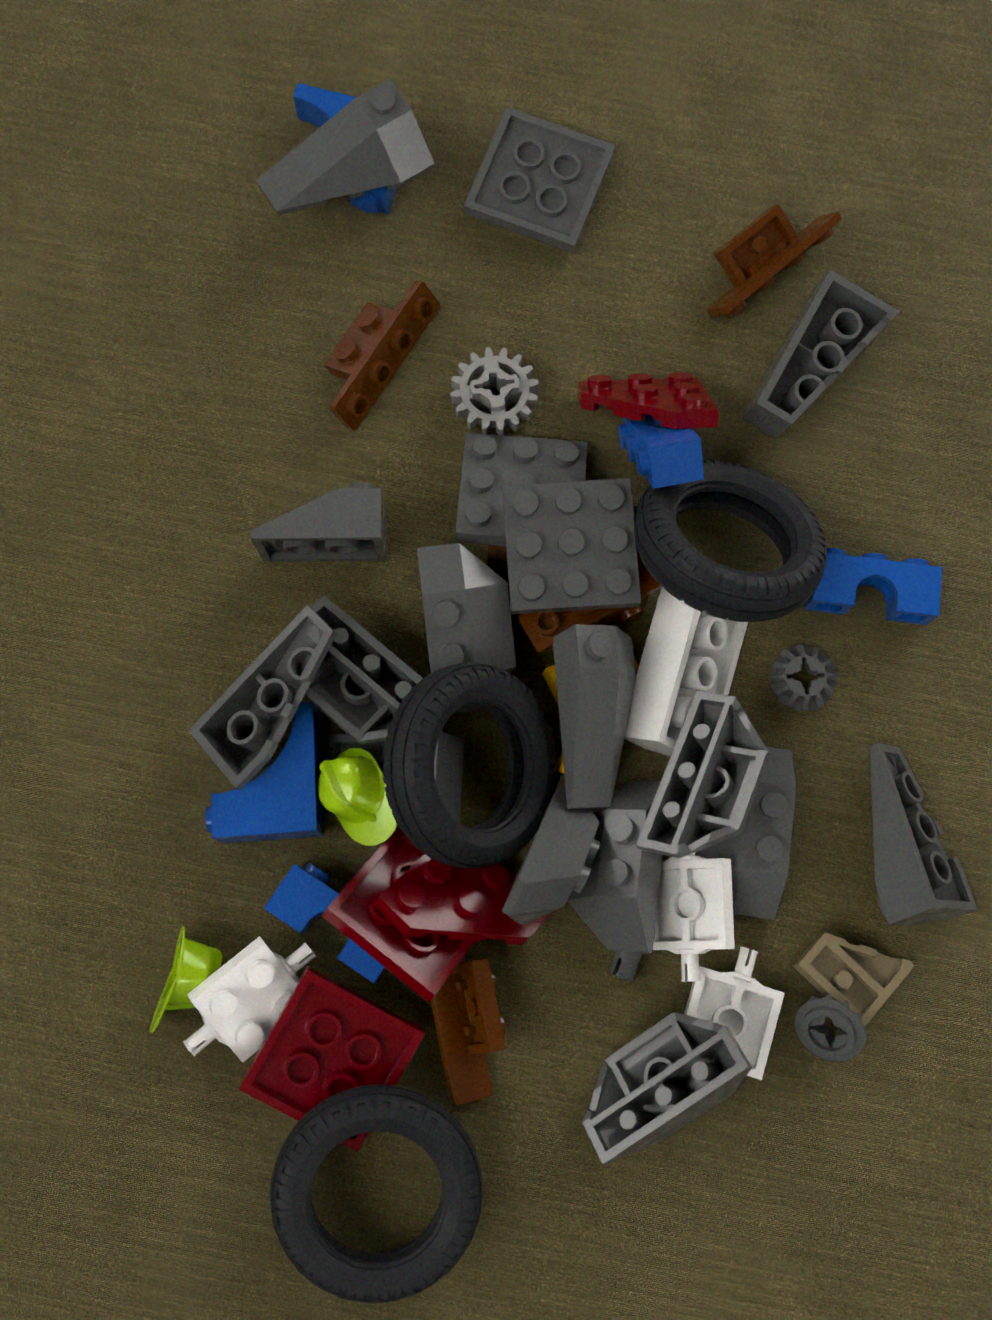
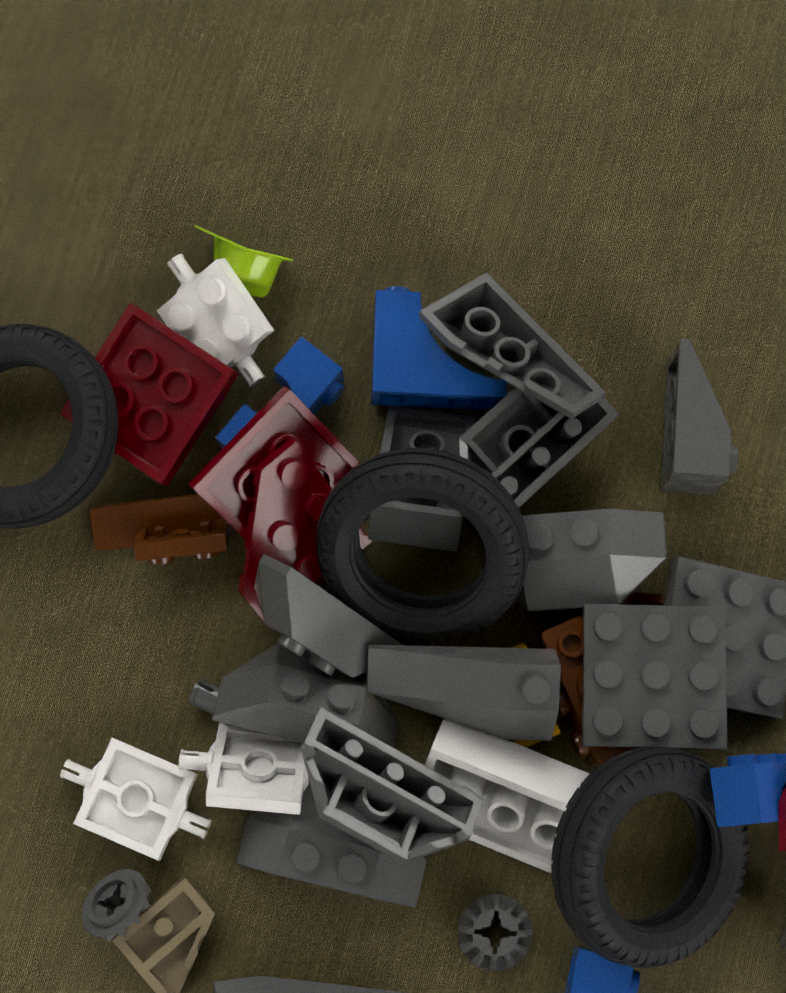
camera: 100 degrees right, 0 degrees up
(356, 794) = (408, 424): lime piece -> none
(662, 1084) = (80, 714): dark grey wedge -> none

